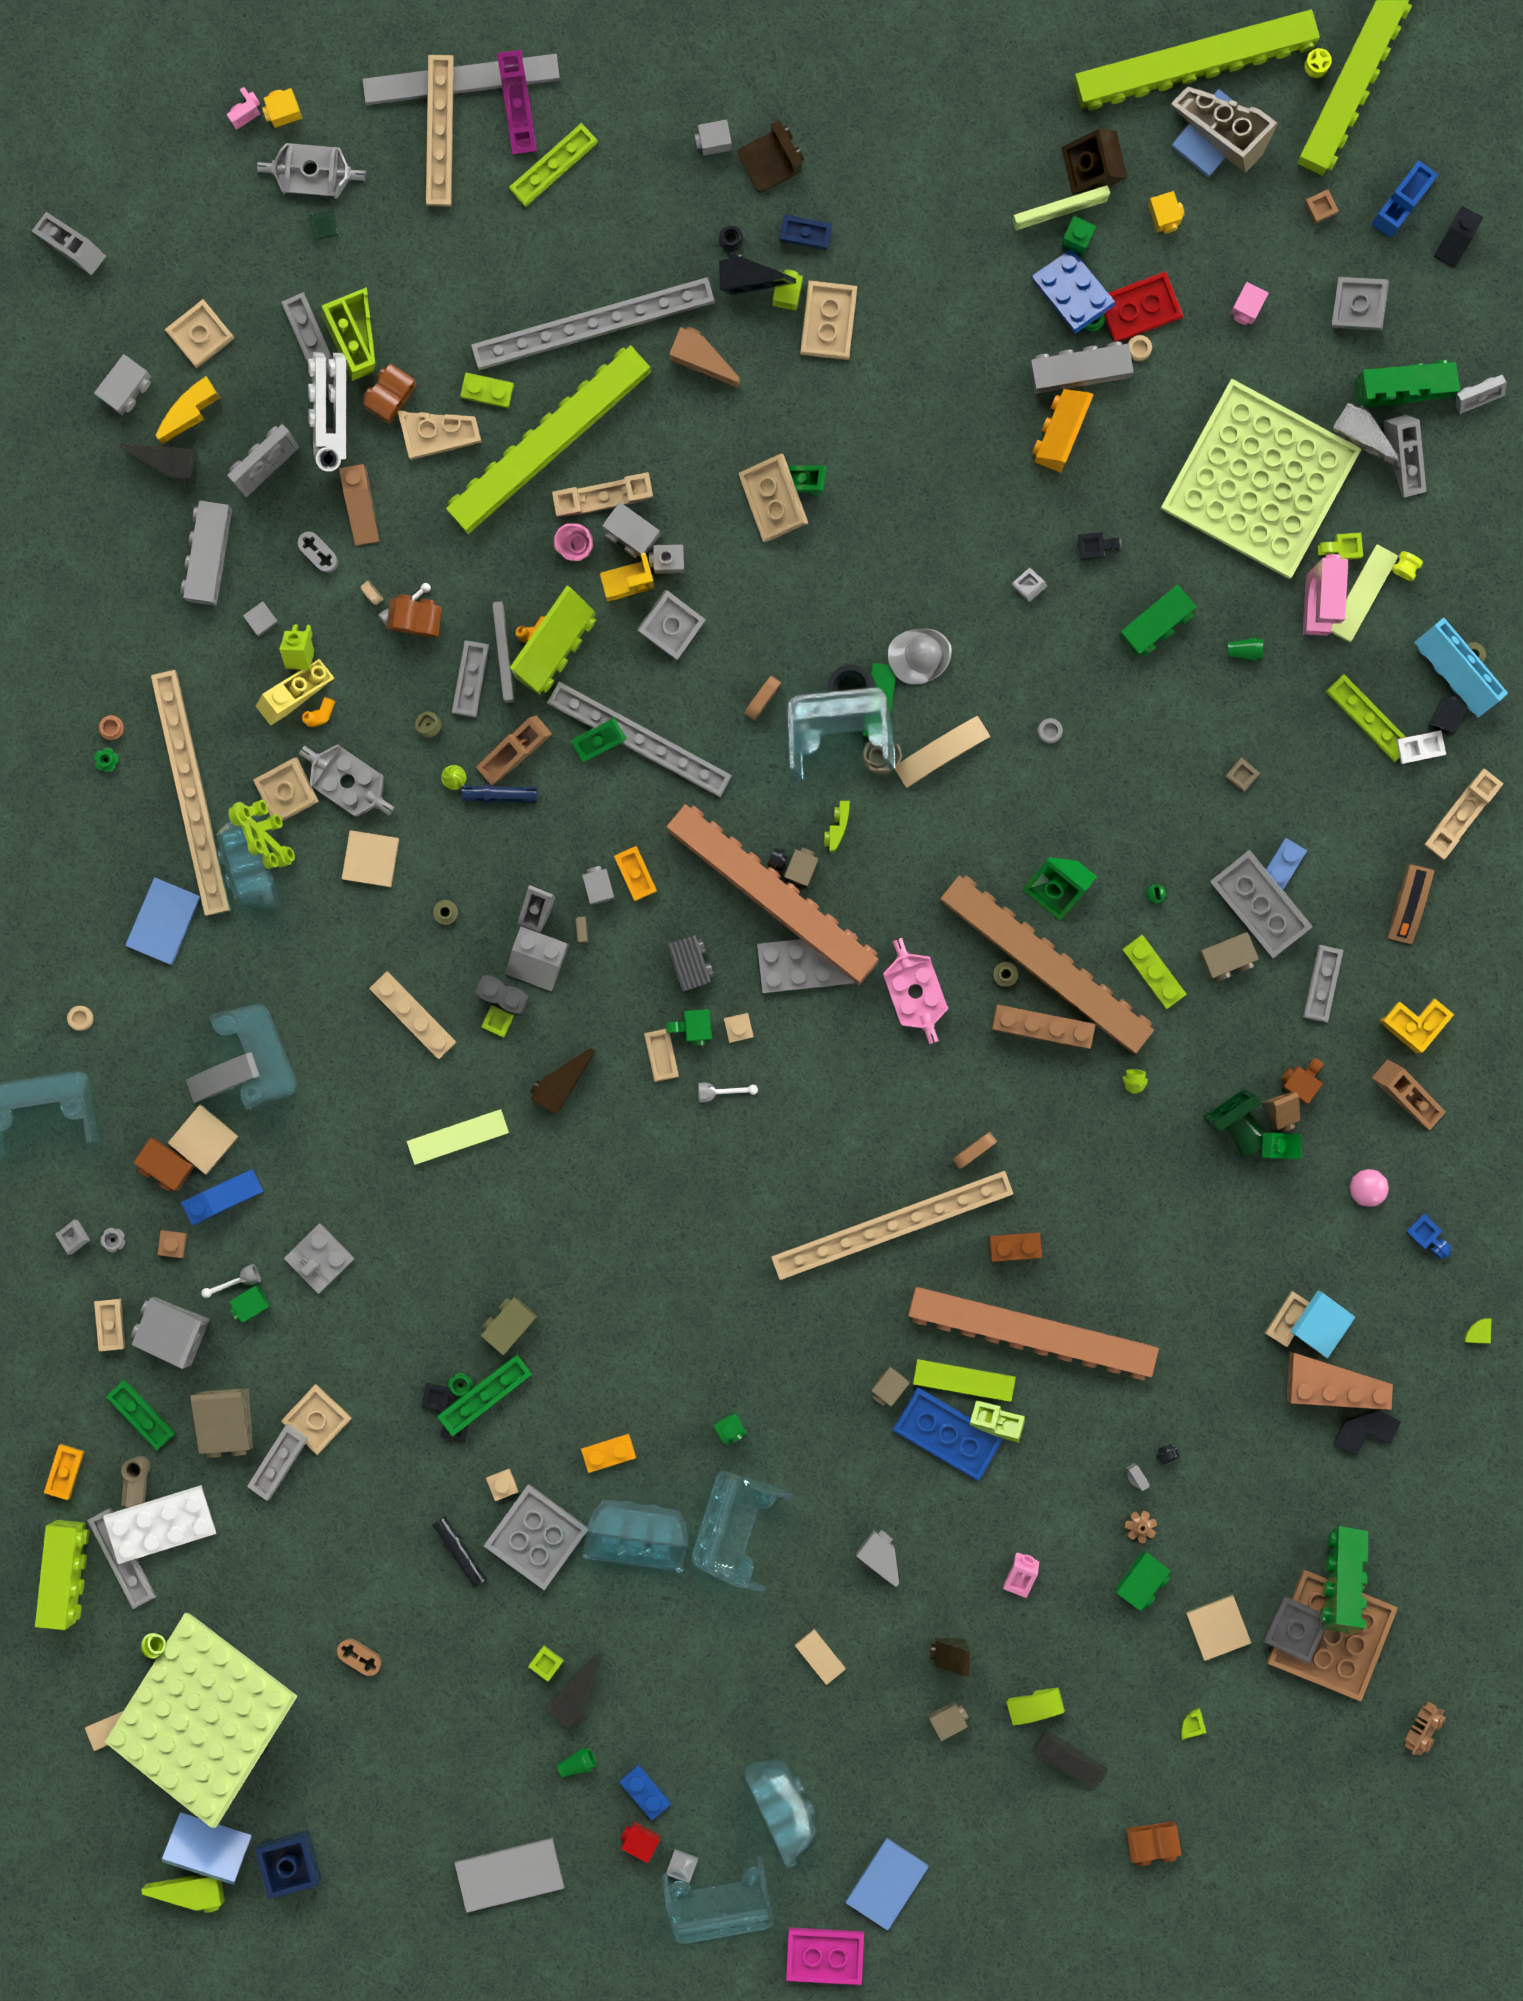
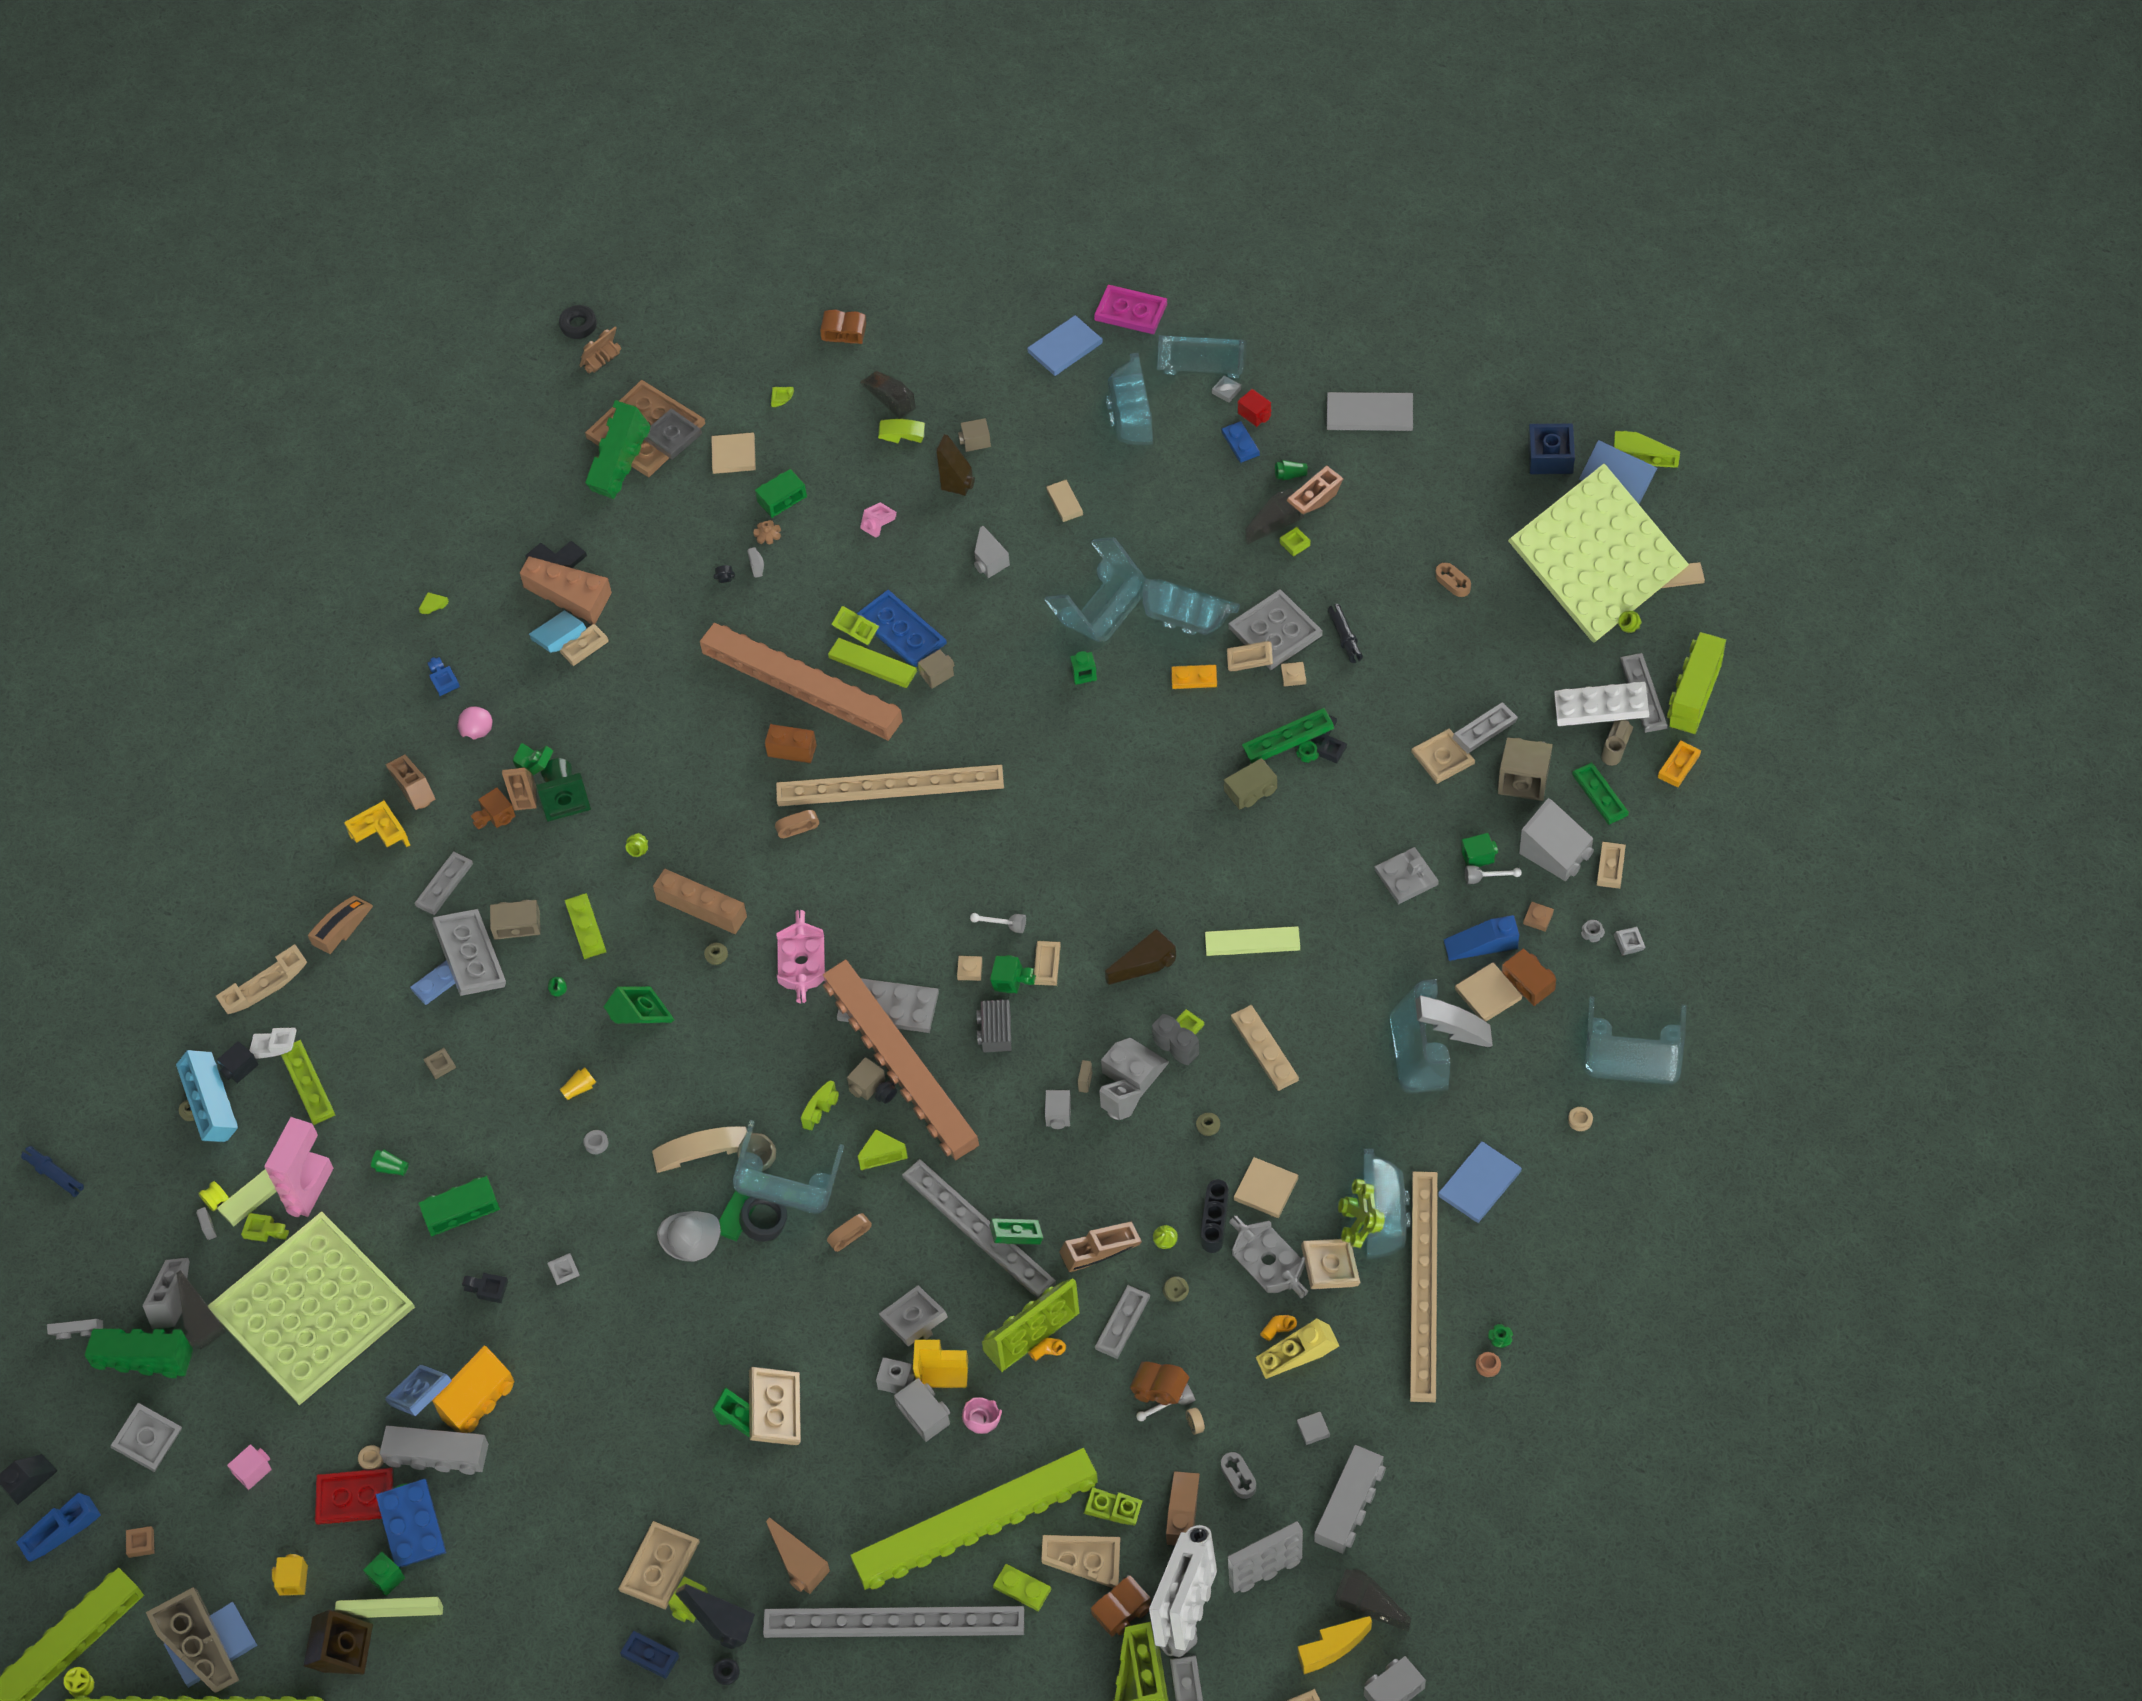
camera: 160 degrees left, 30 degrees down
(297, 648) = (1281, 1385): lime brick -> none
(405, 799) = (1218, 1206): none -> black beam
(425, 490) = (1113, 1507): none -> lime slope
(502, 794) = (1136, 1214): dark blue pin -> none
(503, 652) = (1082, 1333): light grey tile -> none
(536, 1727) = (1316, 491): none -> nougat slope
(553, 1490) = (1249, 656): none -> tan tile
(602, 496) = (938, 1455): tan slope -> none
(635, 873) = (1020, 1113): light orange plate -> none
(760, 793) = (881, 1150): none -> lime slope
(1046, 964) = (678, 952): medium nougat brick -> none
(1090, 787) = (578, 1083): none -> yellow cone
(1116, 412) = (418, 1390): none -> medium blue tile
(1400, 534) = (206, 1223): none -> light grey tile
(1486, 1776) = (580, 331): none -> black tyre

